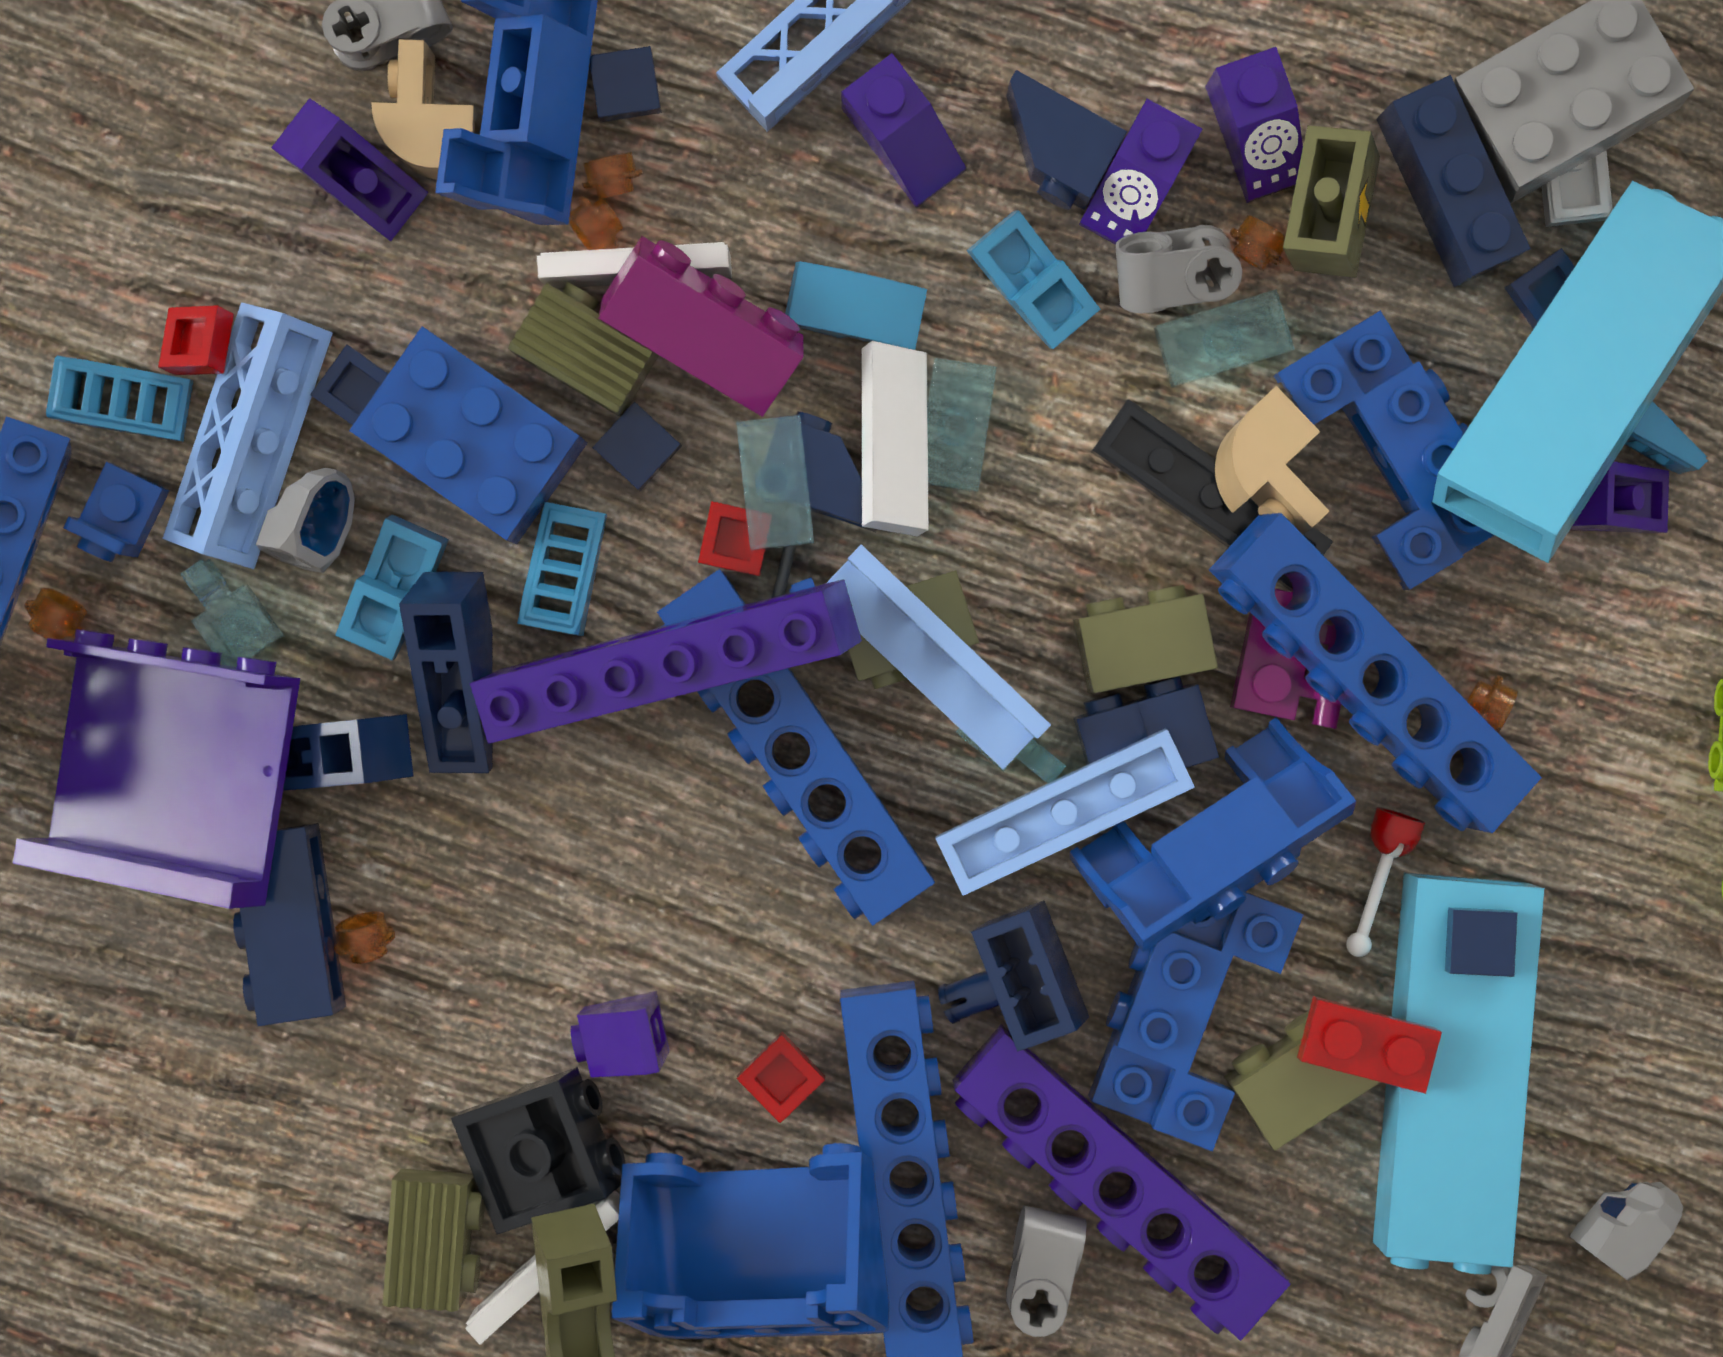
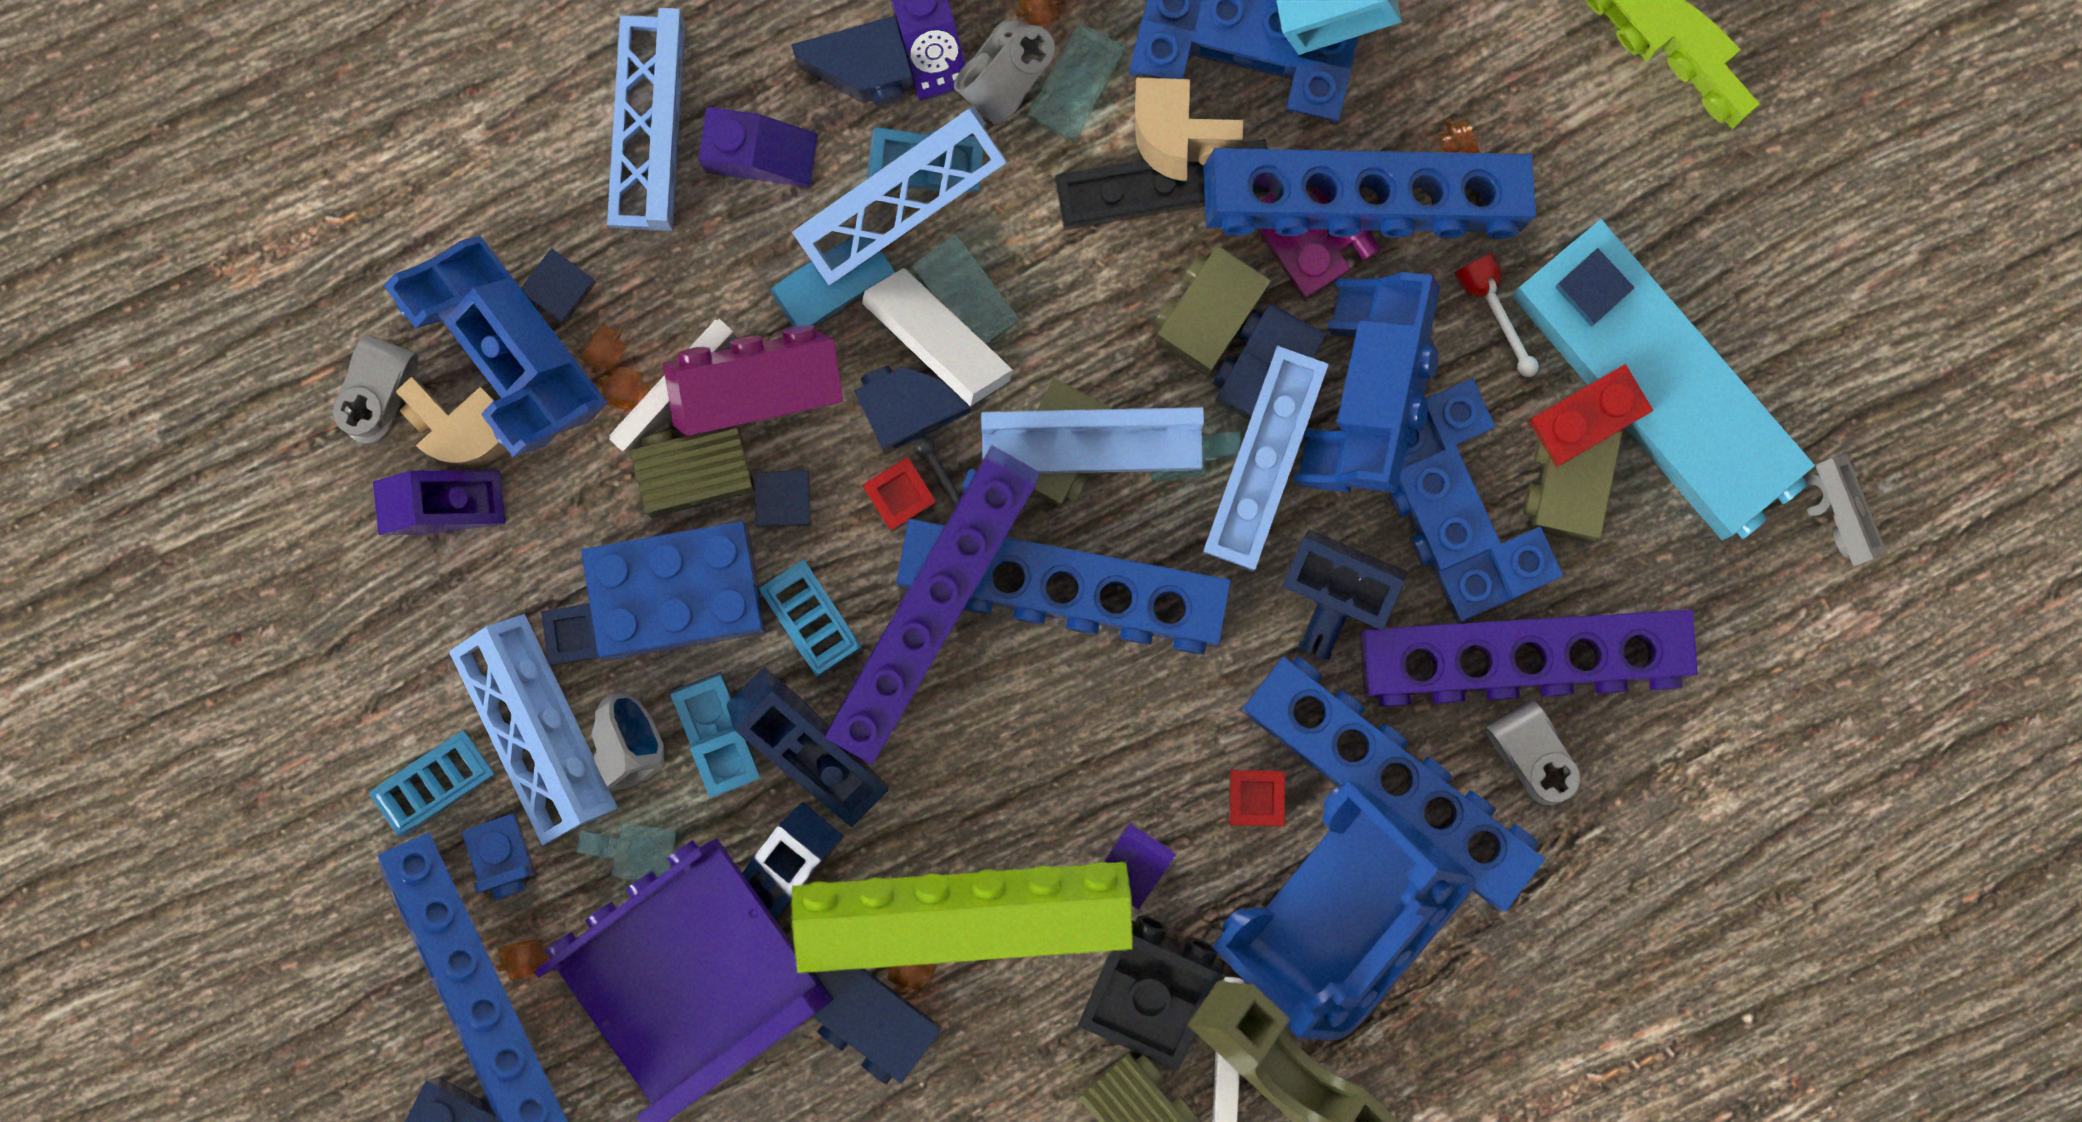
camera: 40 degrees left, 5 degrees down
(196, 340) = (445, 700): red plate -> none
(432, 945) = (961, 917): none -> lime brick
(775, 482) = (891, 431): clear light blue plate -> none
(986, 266) = (886, 180): none -> light blue fence
(1630, 1226) = (1863, 374): light grey rock -> none

